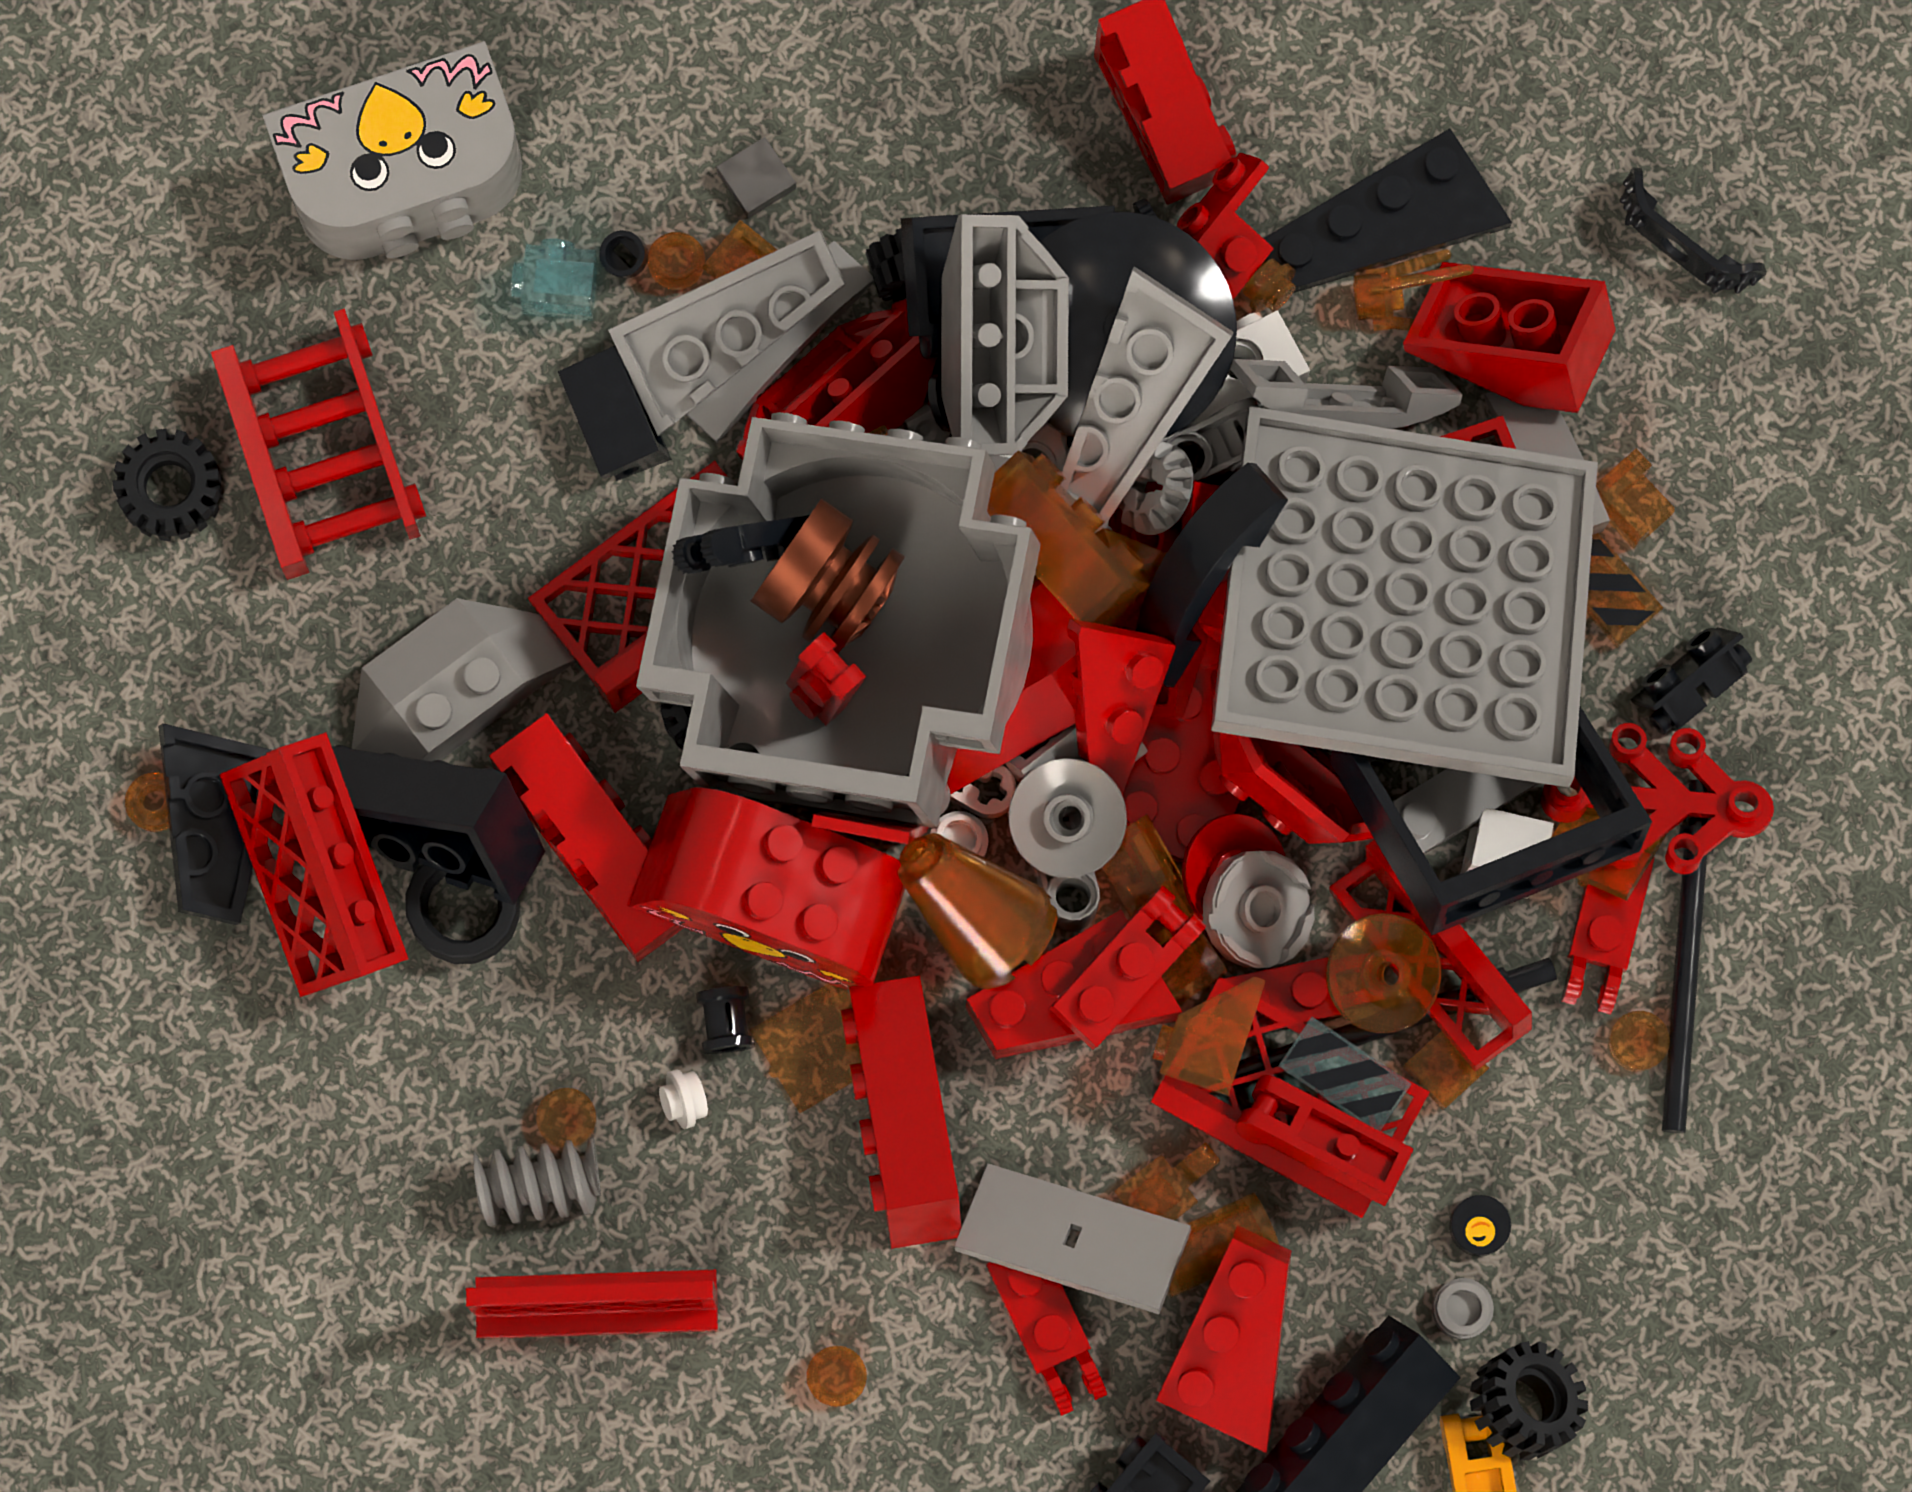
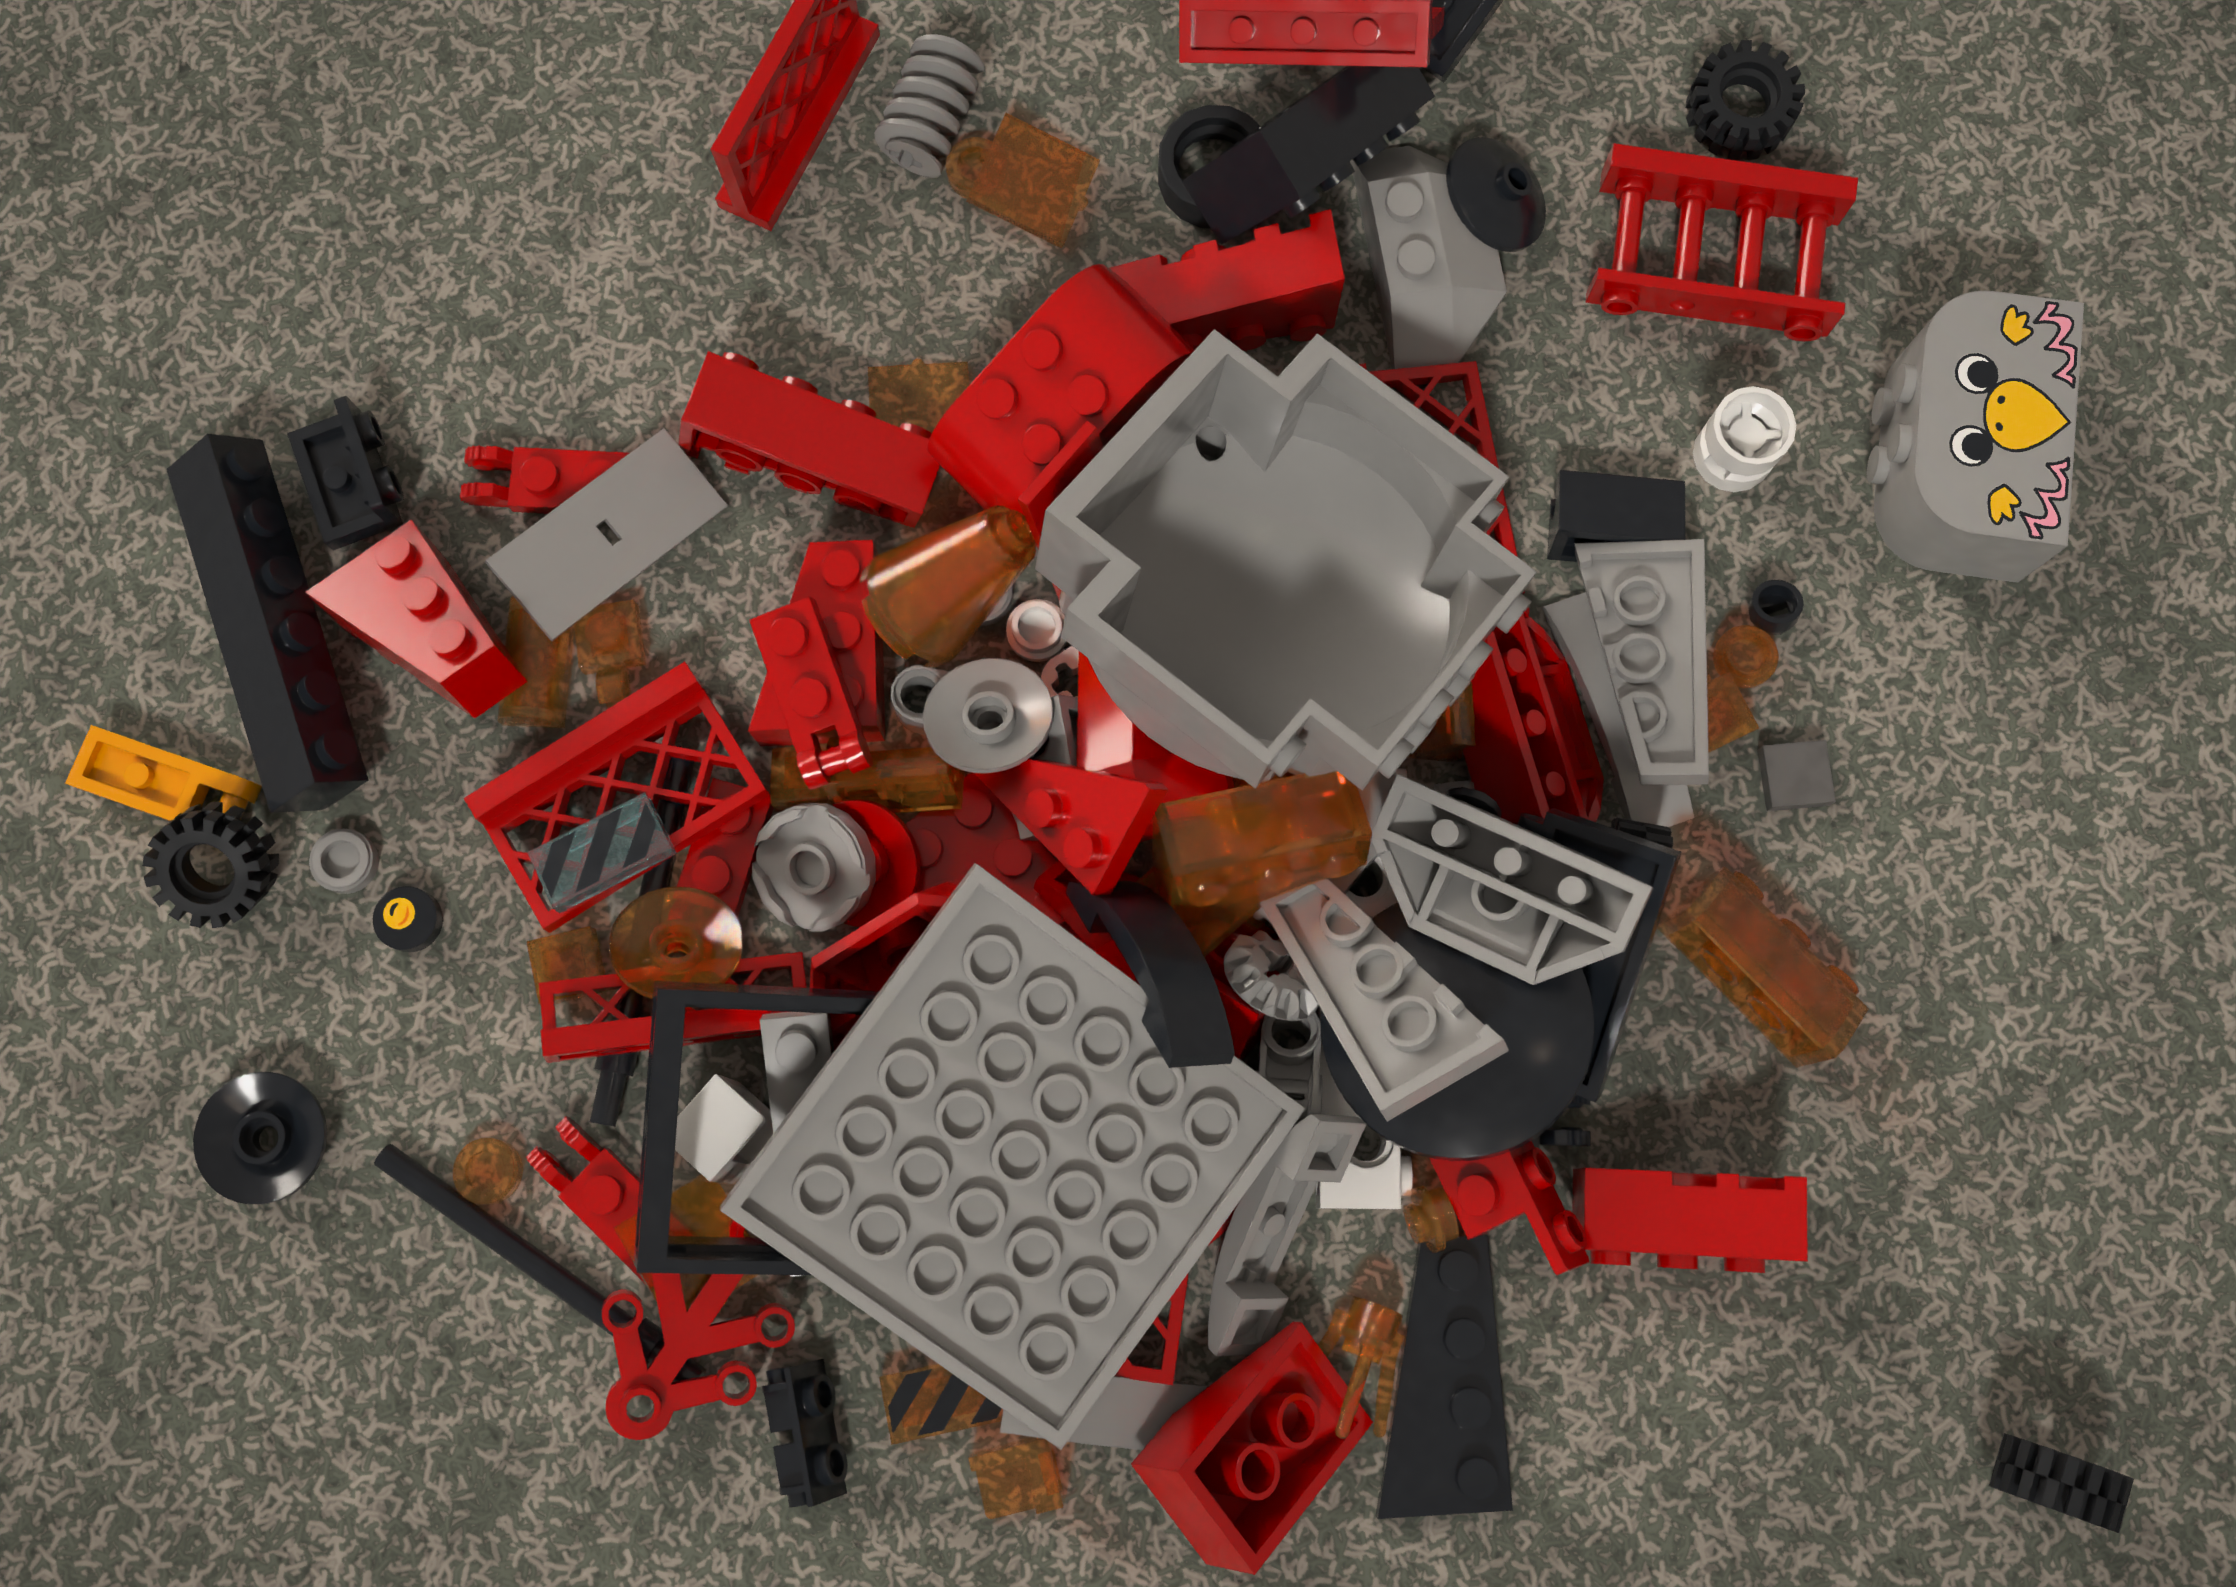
camera: 125 degrees right, 0 degrees up
(368, 650) = (1496, 194): none -> black dish
(495, 341) = (1744, 439): none -> white wheel
(555, 1058) = (1033, 180): none -> clear orange piece
(556, 280) = (1779, 531): clear light blue brick -> none
(683, 1098) = (934, 267): white plate -> none
(725, 1019) = (978, 334): black bush -> none
(736, 545) = (1410, 508): black hinge -> none
(823, 681) = (1233, 520): red plate -> none
(829, 578) = (1338, 586): copper wheel -> none
(836, 1376) = (616, 279): clear orange plate -> none
(933, 126) = (1766, 968): none -> clear orange slope
(1210, 1038) = (705, 739): clear orange slope -> none
(1324, 1139) = (547, 799): red plate -> none
(1746, 1224) = (230, 1130): none -> black dish

